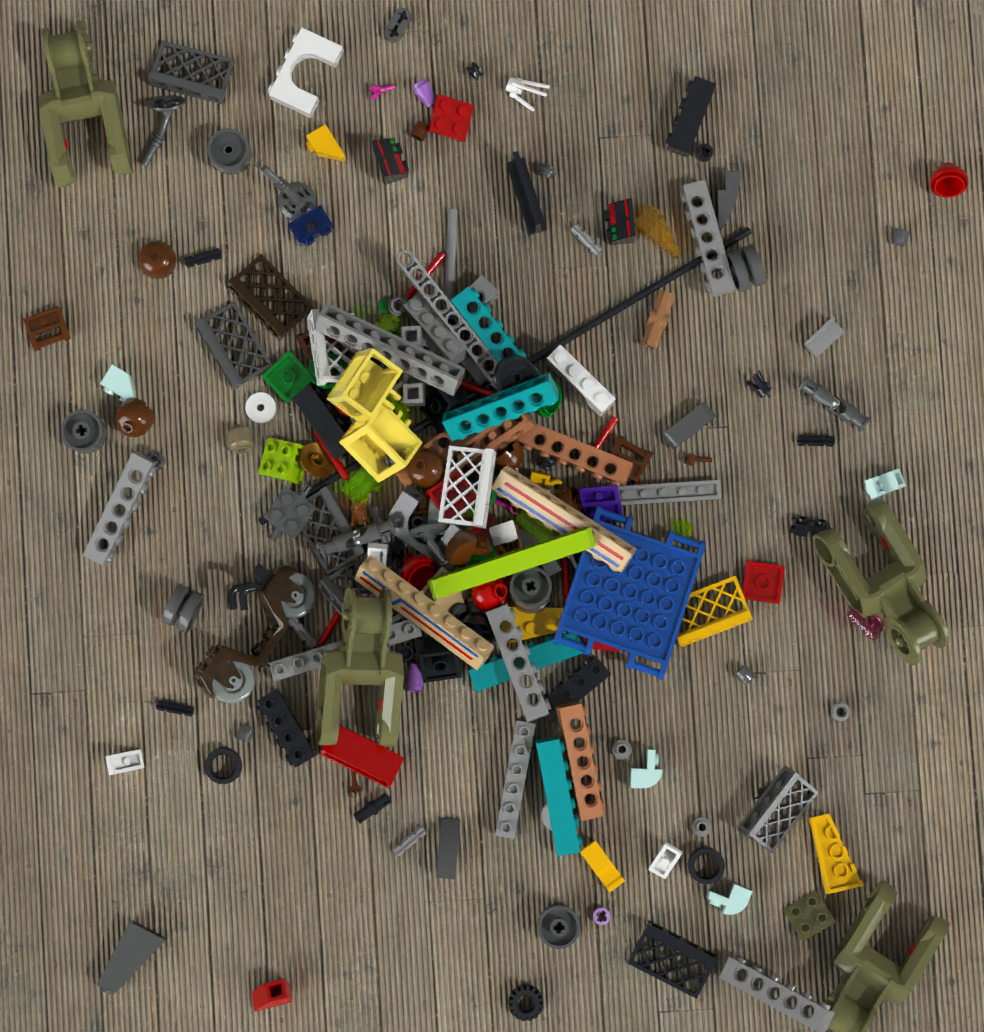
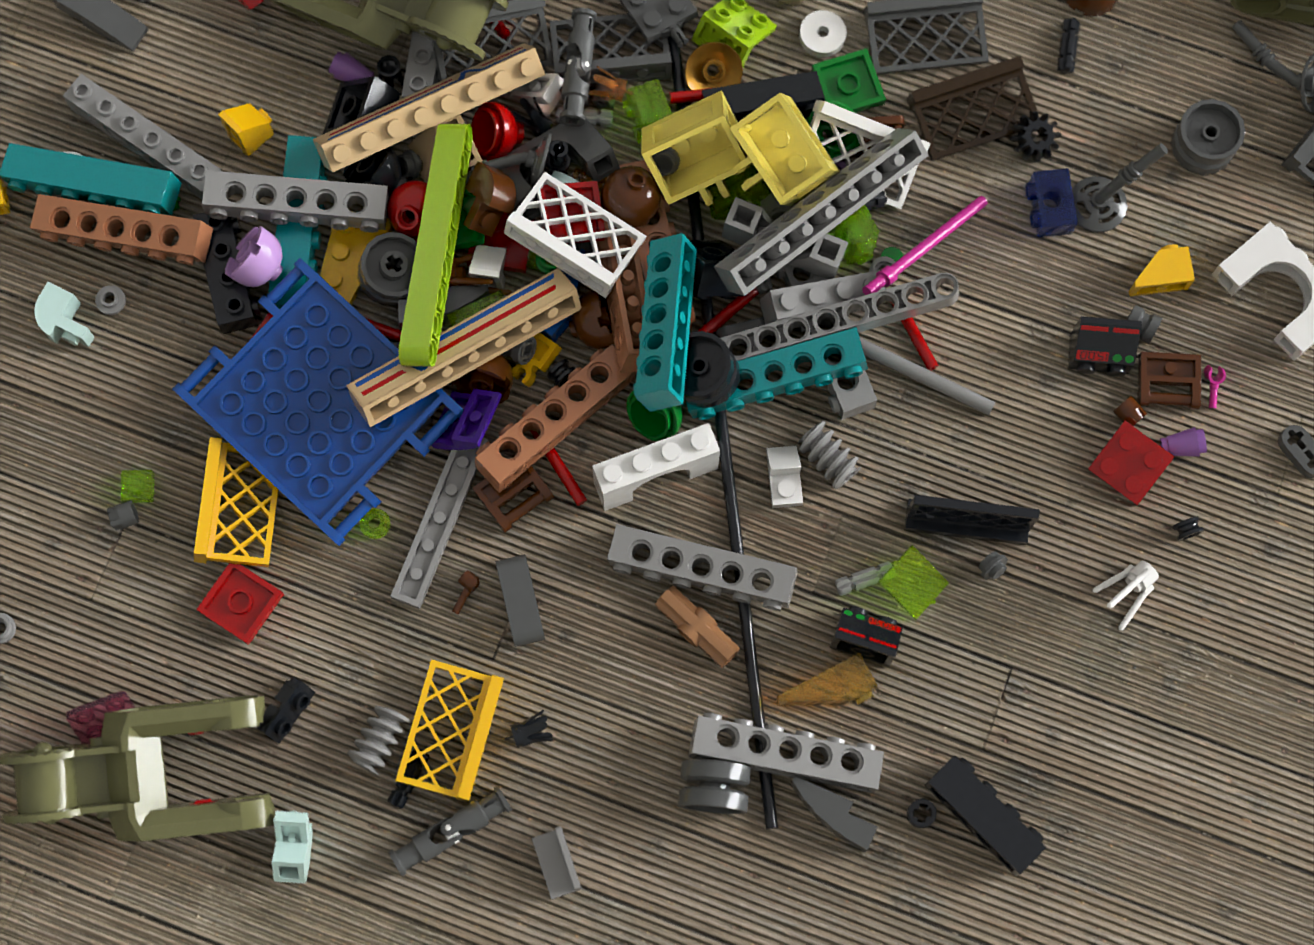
camera: 110 degrees right, 10 degrees down
(281, 252) = (1046, 134): none -> black gear
(363, 145) = (1149, 323): none -> dark grey wheel
(384, 119) = (1170, 370): none -> reddish brown plate
(406, 297) = (889, 274): none -> dark pink bar
(479, 720) = (247, 127): none -> yellow slope
(524, 289) = (829, 455): none -> light grey piece
(546, 310) = (784, 476): none -> white slope
(565, 668) = (257, 259): none -> lavender cylinder
(576, 211) = (913, 582): none -> clear neon green piece
(622, 281) = (629, 540): none -> light grey brick
(723, 676) = (137, 485): none -> clear neon green plate
(776, 412) = (476, 738): none -> yellow fence
(803, 466) = (378, 738): none -> light grey piece

